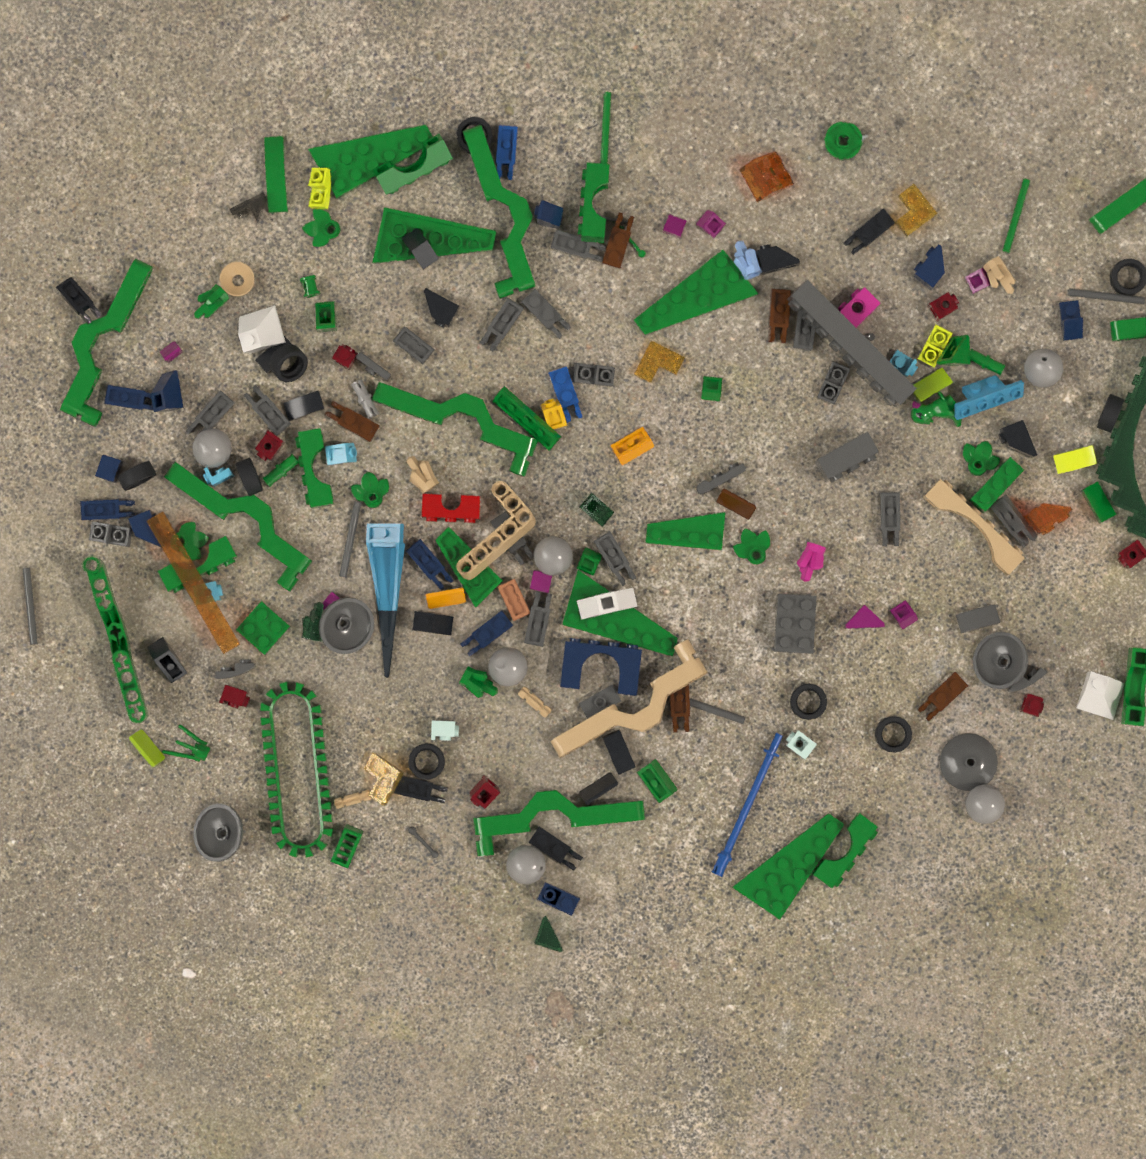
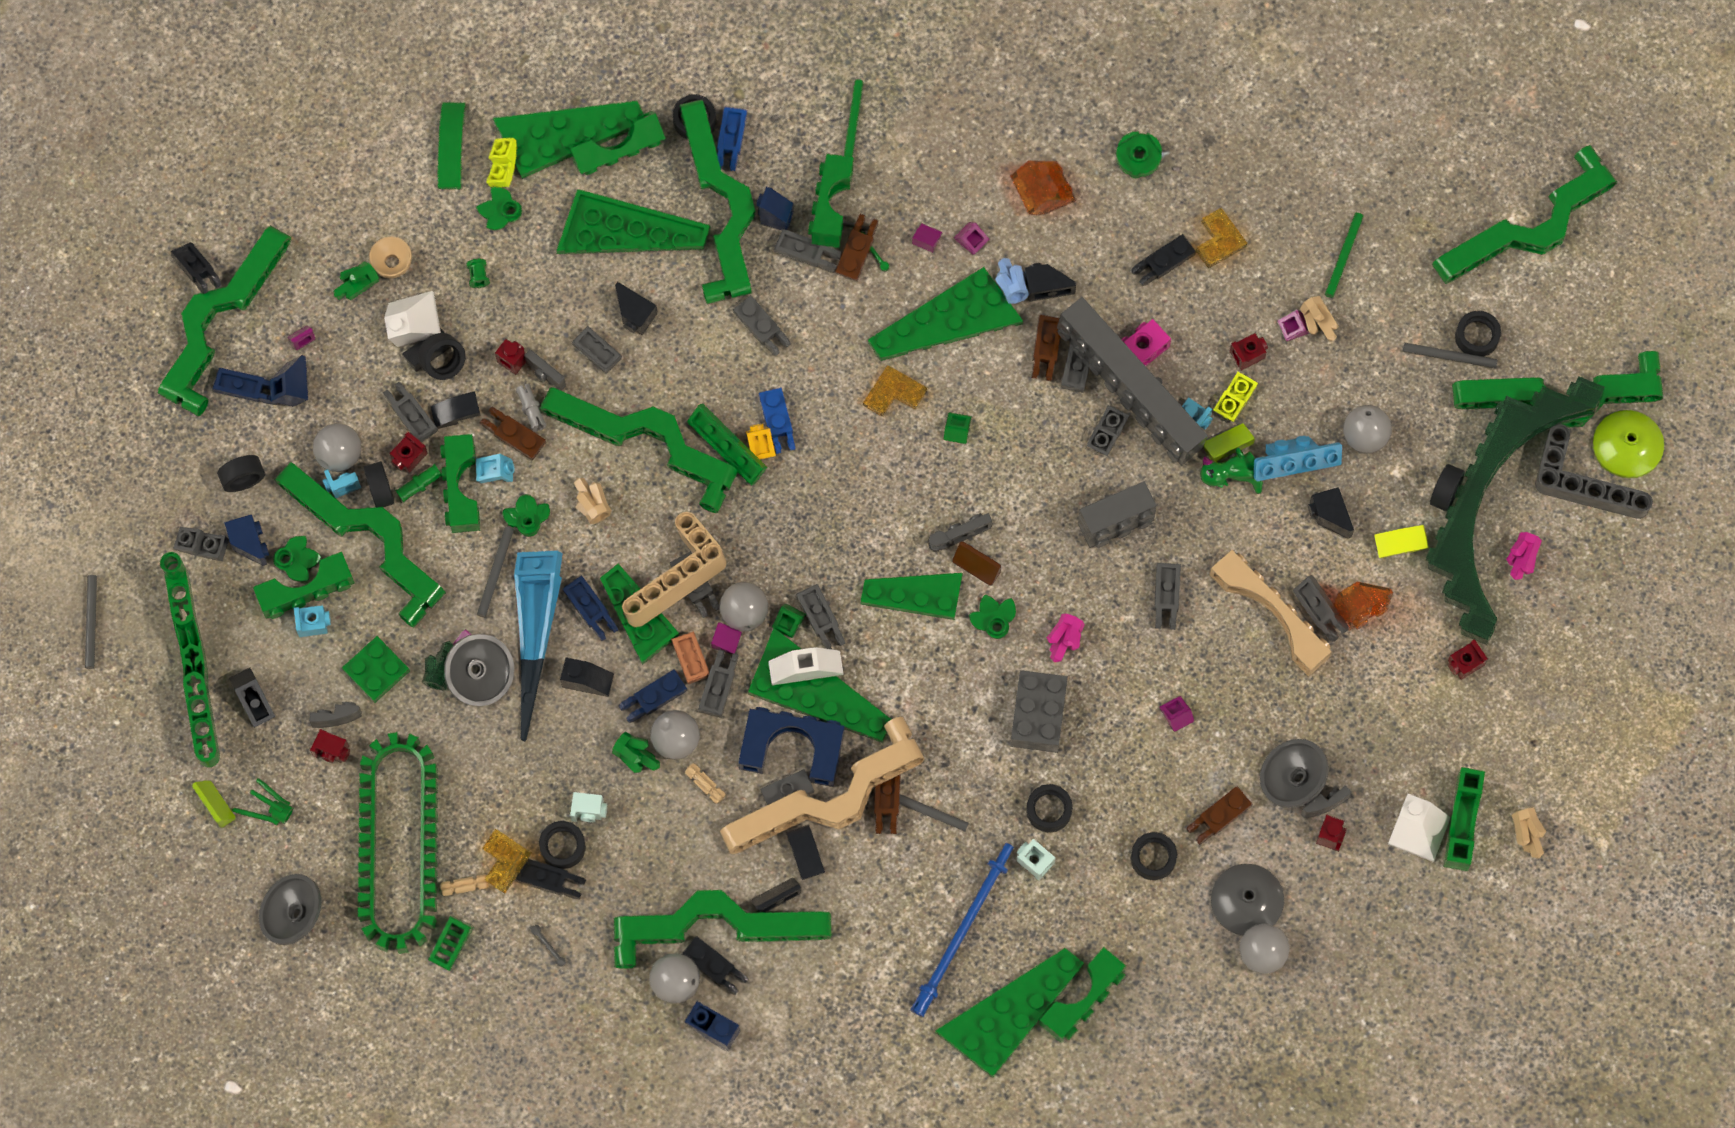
camera: 10 degrees right, 15 degrees down
(104, 509) = (197, 513): dark blue hinge -> none
(109, 468) = (207, 465): dark blue panel -> none
(193, 582) = (295, 603): clear orange tile -> none
(213, 412) = (343, 409): dark grey hinge -> none
(254, 204) = (421, 174): clear smoke slope -> none
(325, 316) = (493, 311): green slope -> none
(420, 248) = (616, 237): black slope -> none
(433, 509) = (642, 546): red arch -> none
(445, 598) = (606, 648): light orange slope -> none
(486, 798) = (640, 887): dark red brick -> none
(502, 322) = (707, 332): dark grey hinge -> none
(547, 937) = (693, 1074): clear green slope -> none
(593, 374) = (813, 401): dark grey slope -> none
(596, 509) = (801, 556): clear green slope -> none
(632, 446) = (854, 488): light orange slope -> none
(657, 781) = (850, 892): green slope -> none
(864, 619) = (1126, 713): magenta slope -> none
(932, 269) = (1236, 307): dark blue slope -> none
(956, 352) = (1261, 405): green slope -> none
(978, 618) = (1269, 722): dark grey slope -> none
(982, 455) = (1285, 530): green plate -> none
(986, 362) = (1296, 419): green pin -> none
(996, 485) = (1294, 568): green arch -> none
(1071, 320) = (1405, 380): dark blue slope -> none
(1098, 502) = (1427, 596): green slope -> none

